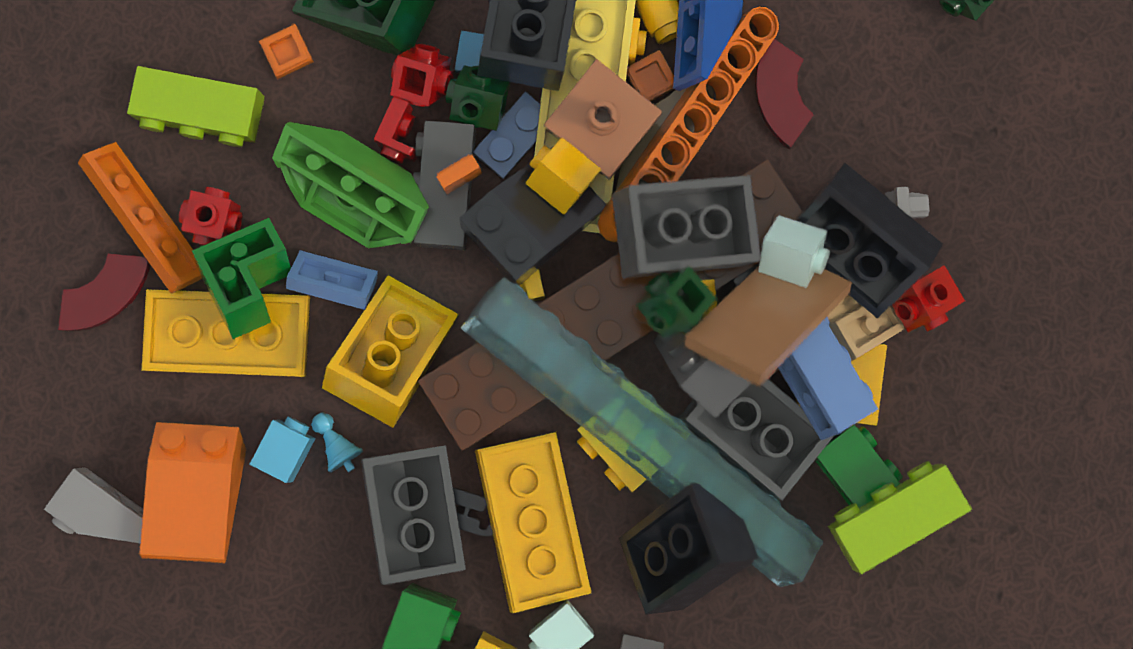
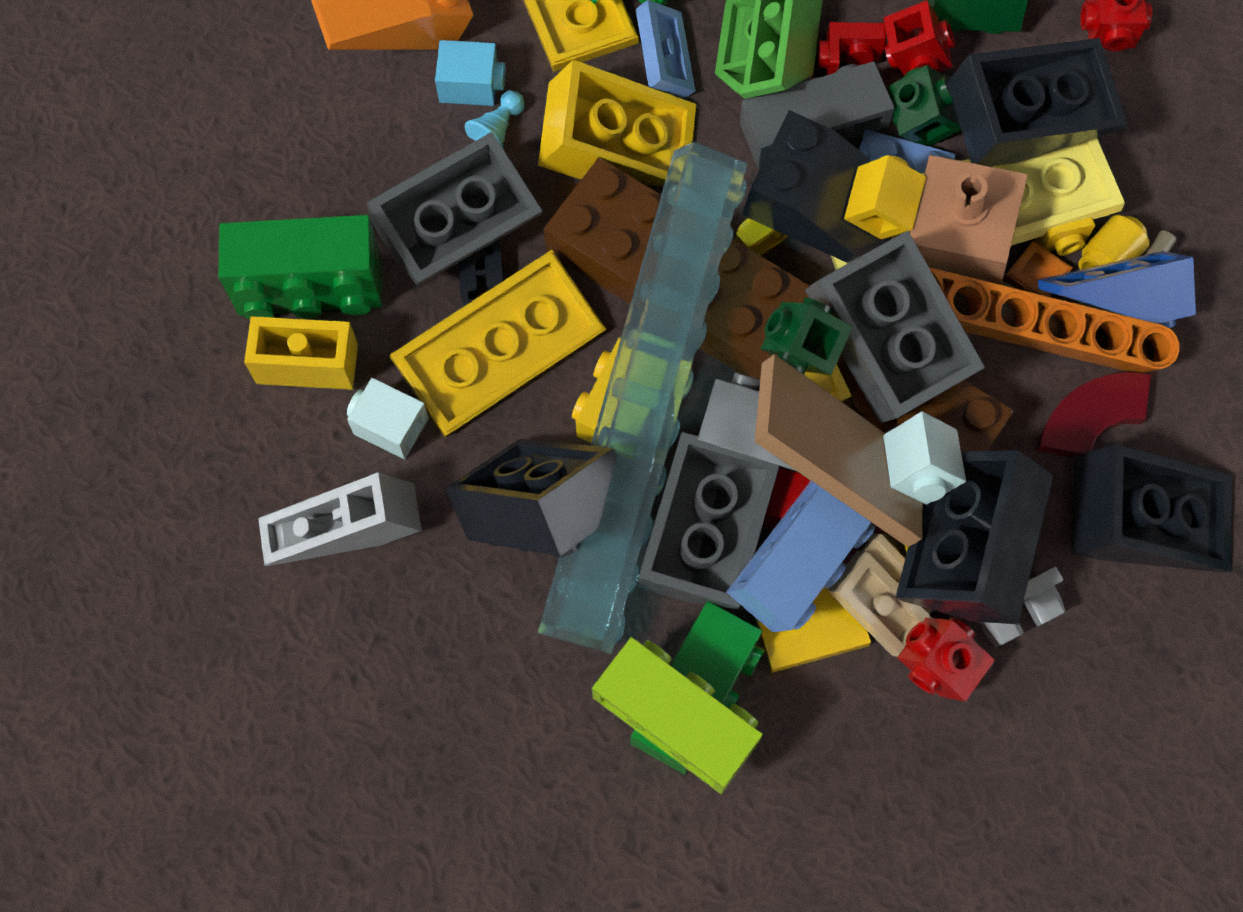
camera: 65 degrees right, 15 degrees down
(459, 174) = (834, 104): orange tile -> none
(877, 93) = (1151, 510): none -> black slope

